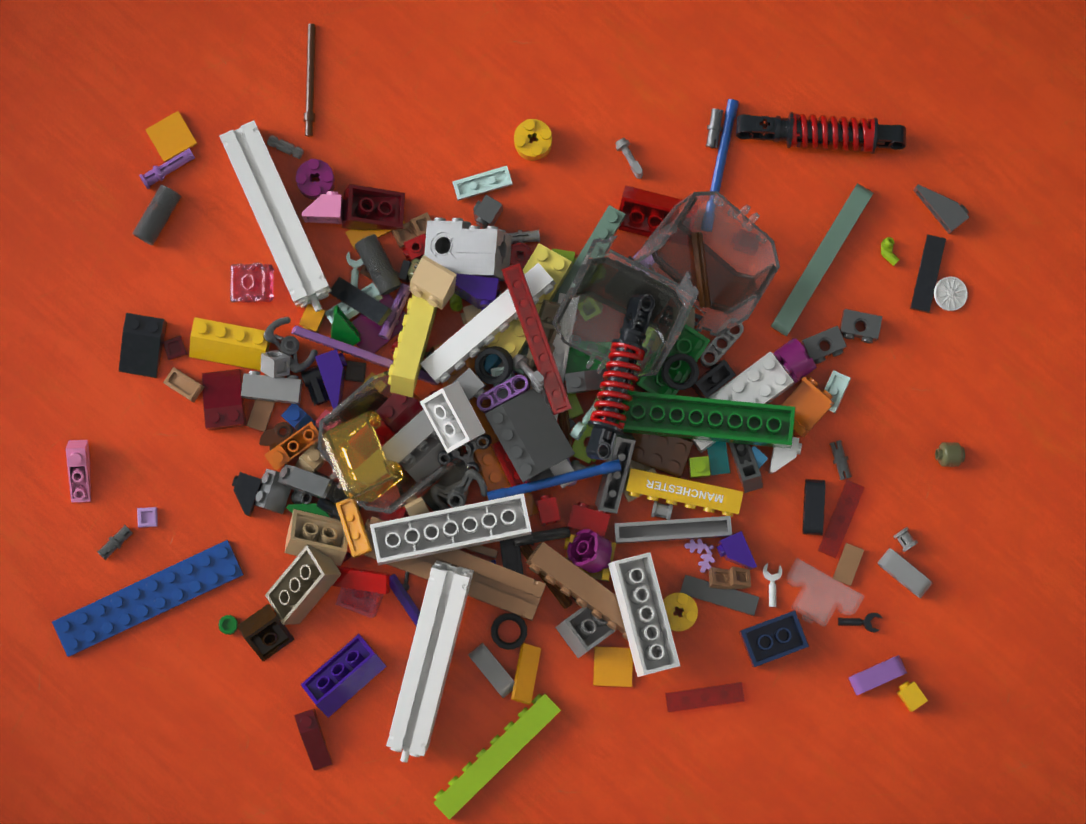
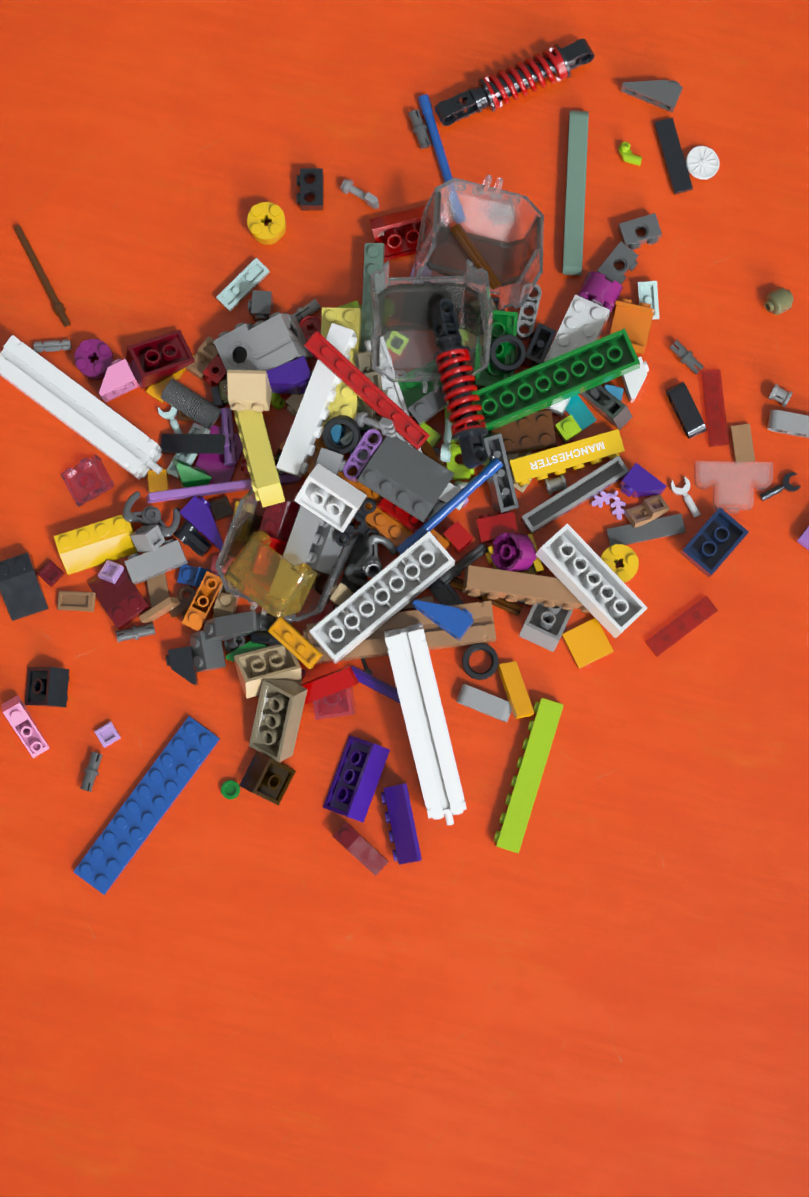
camera: 25 degrees left, 0 degrees up
(117, 446) = (47, 686): none -> black slope
(220, 440) = (135, 632): none -> dark grey pin
(228, 375) = (111, 571): none -> lavender tile
(251, 432) = (159, 610): none -> medium nougat tile
(362, 738) = (402, 824): none -> dark purple slope
(500, 581) = (450, 619): none -> blue slope
(592, 132) = (315, 188): none -> black brick

